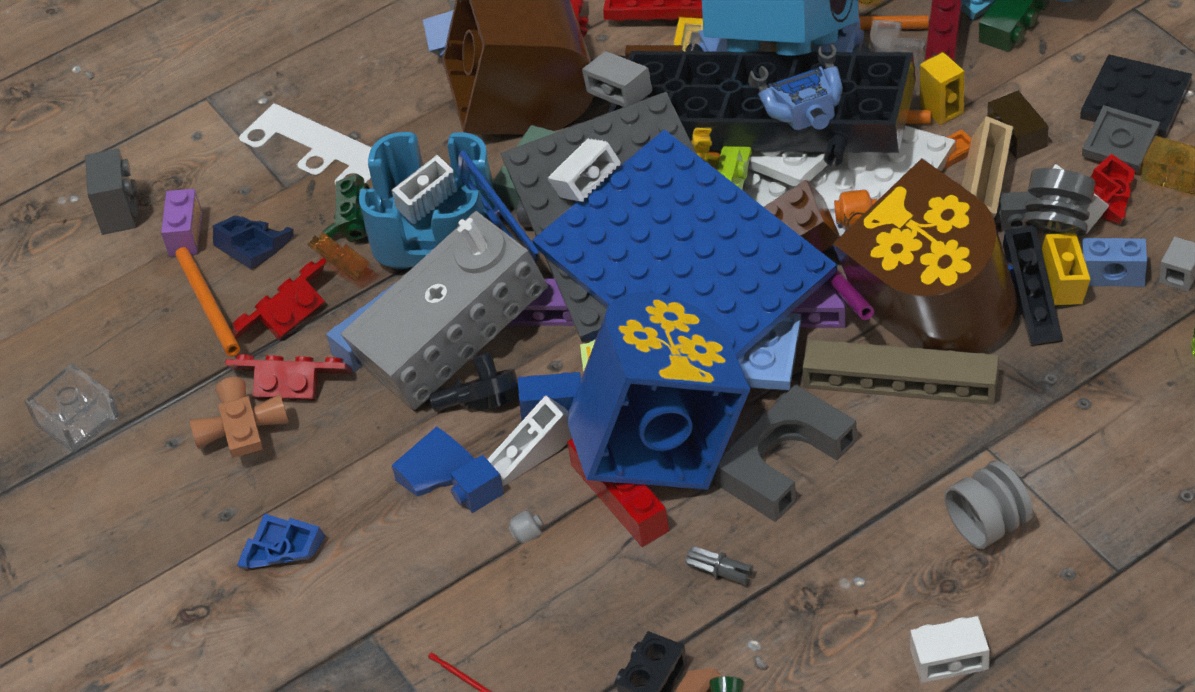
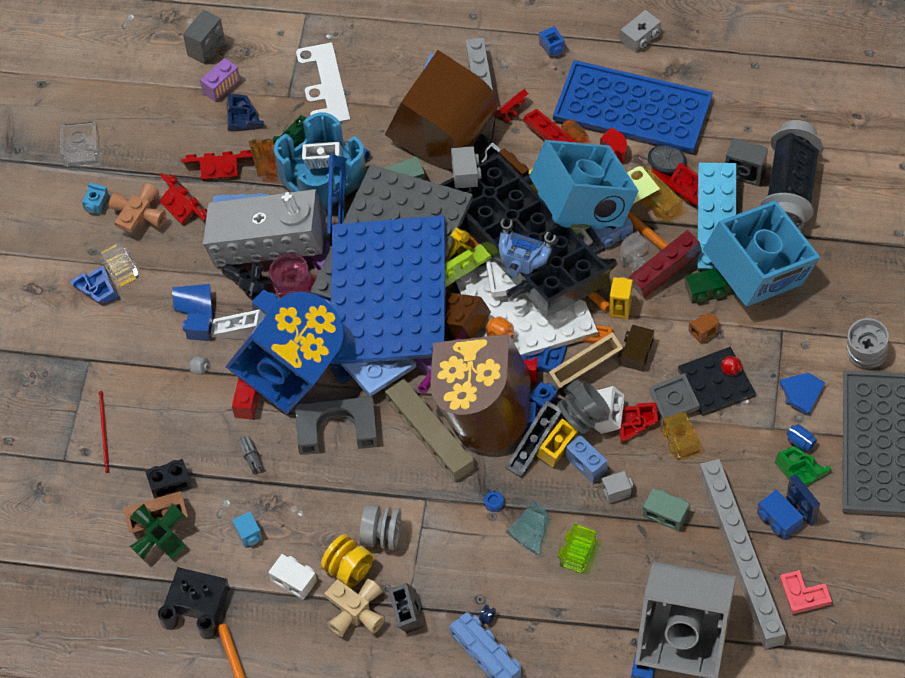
camera: 40 degrees right, 10 degrees up
(163, 452) = (95, 198): none -> dark azure brick
(207, 301) = (186, 134): orange piece -> none
(285, 495) = (119, 264): none -> clear brick
(536, 340) = (290, 274): none -> clear pink wheel
(584, 170) = (385, 207): white brick -> none
(825, 646) = (247, 529): none -> dark azure brick
(1006, 571) = (347, 560): none -> yellow wheel
(1057, 57) = (704, 327): none -> dark orange brick
(1066, 386) = (493, 501): none -> blue tile
(1069, 616) = (354, 607): none -> tan brick
(1132, 564) = (406, 608): none -> black brick
(1138, 65) = (731, 365): none -> red piece
(1142, 377) = (530, 527): none -> clear light blue slope

